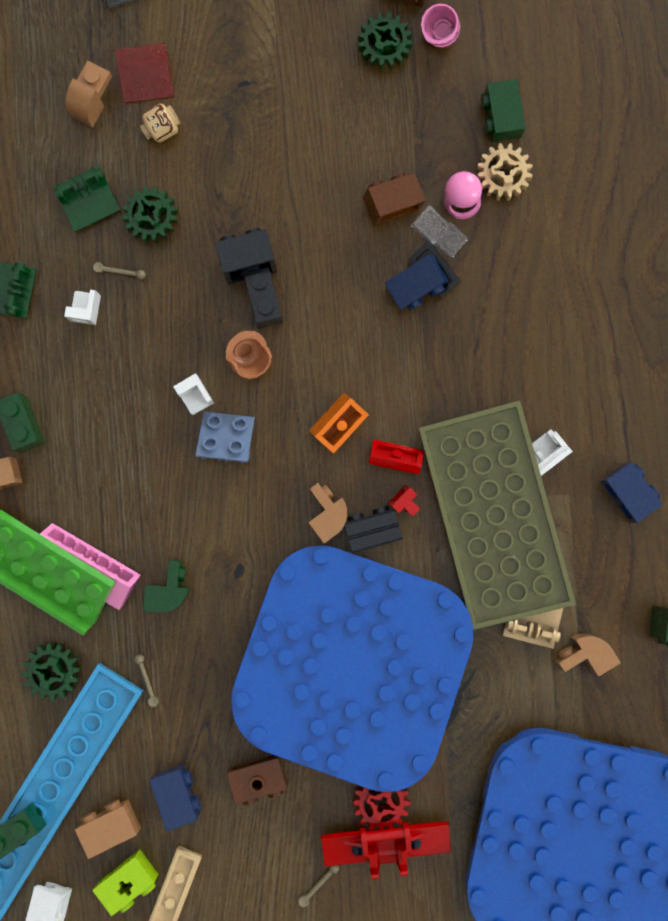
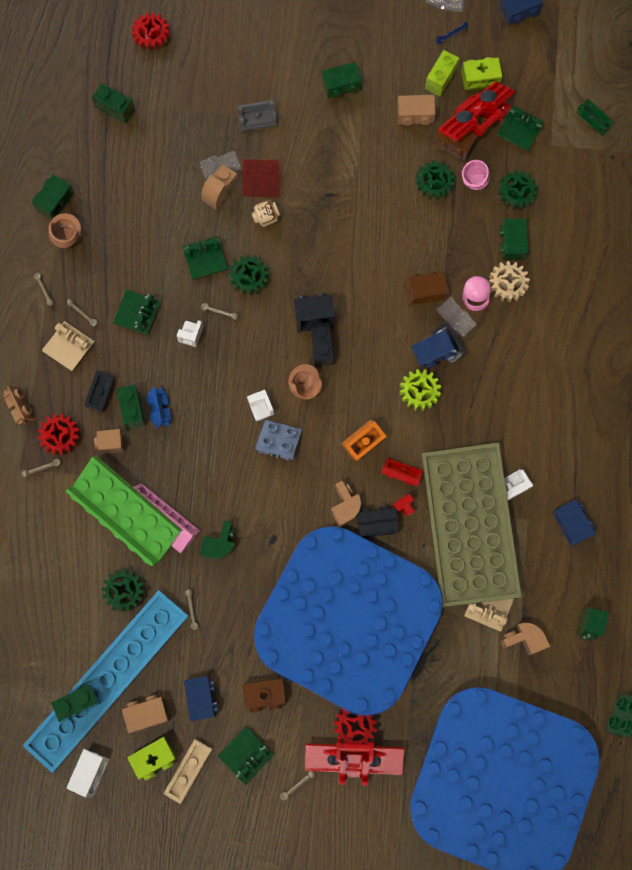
camera: 10 degrees right, 10 degrees down
(54, 408) = (157, 399): none -> blue hinge
(98, 53) = (212, 164): none -> clear slope
(245, 859) = (245, 755): none -> dark green hinge
(414, 341) = (427, 391): none -> lime gear
(497, 42) = (520, 187): none -> dark green gear

